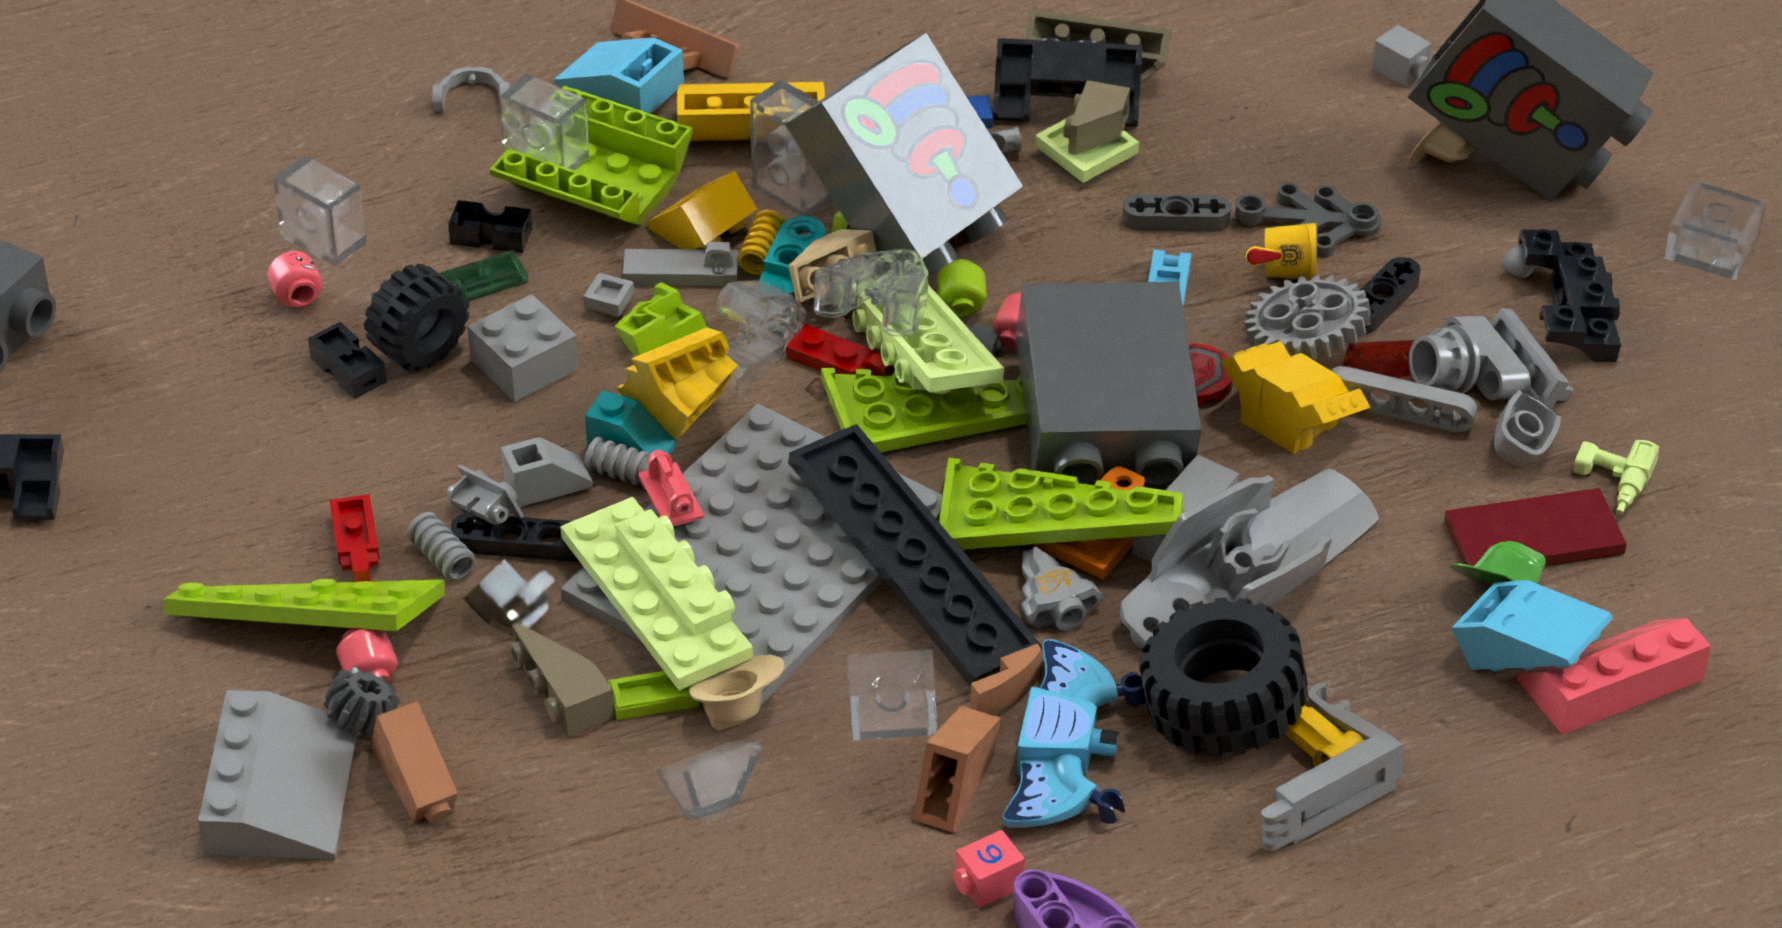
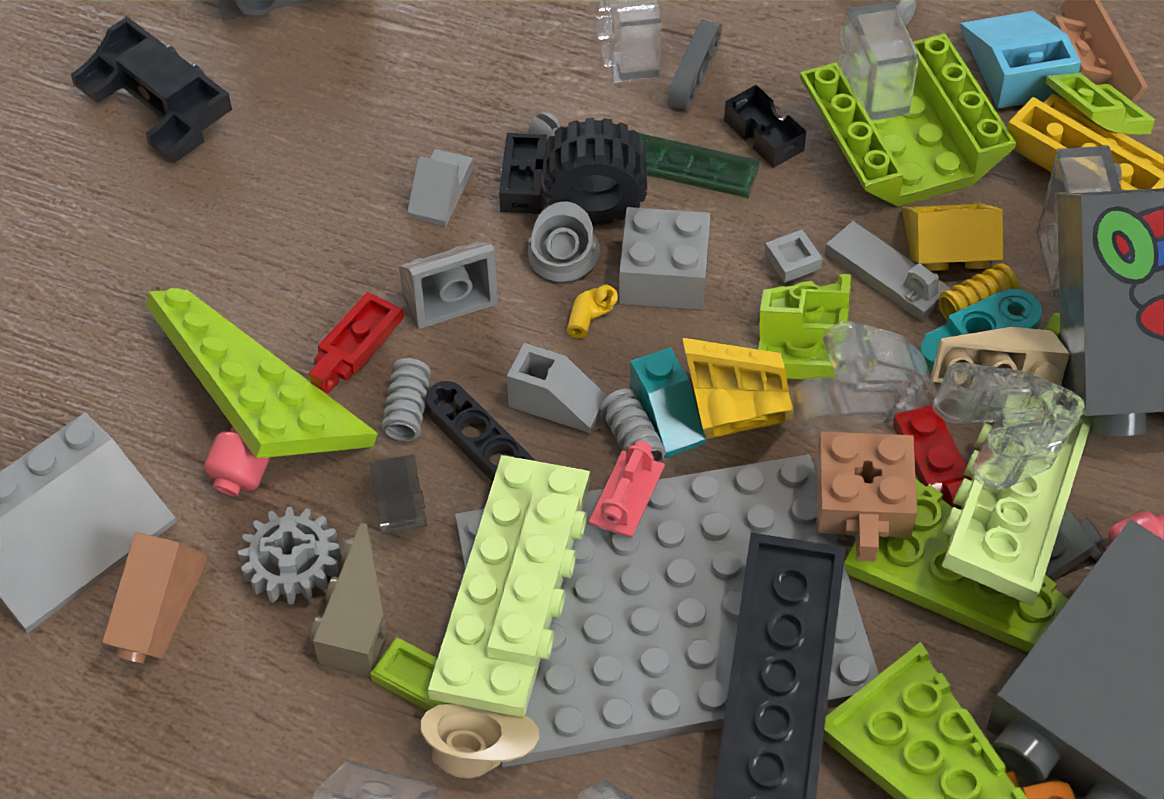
camera: 45 degrees right, 10 degrees up
(293, 407) = (438, 186): none -> light grey slope
(294, 279) = (555, 73): coral head -> none
(323, 319) = (543, 124): none -> light grey hinge
(358, 699) = (172, 512): dark grey gear -> none
(386, 453) = (450, 283): none -> light grey slope
(392, 215) = (694, 65): none -> dark grey beam
(434, 384) = (563, 243): none -> light grey piece
(476, 683) = (289, 555): none -> light grey gear
(484, 496) = (479, 380): light grey hinge -> none
(500, 412) = (588, 307): none -> yellow arm
(718, 72) = (1102, 104): none -> lime slope
(826, 388) = (865, 488): none -> nougat hinge
(962, 287) = (1116, 469): lime head -> none

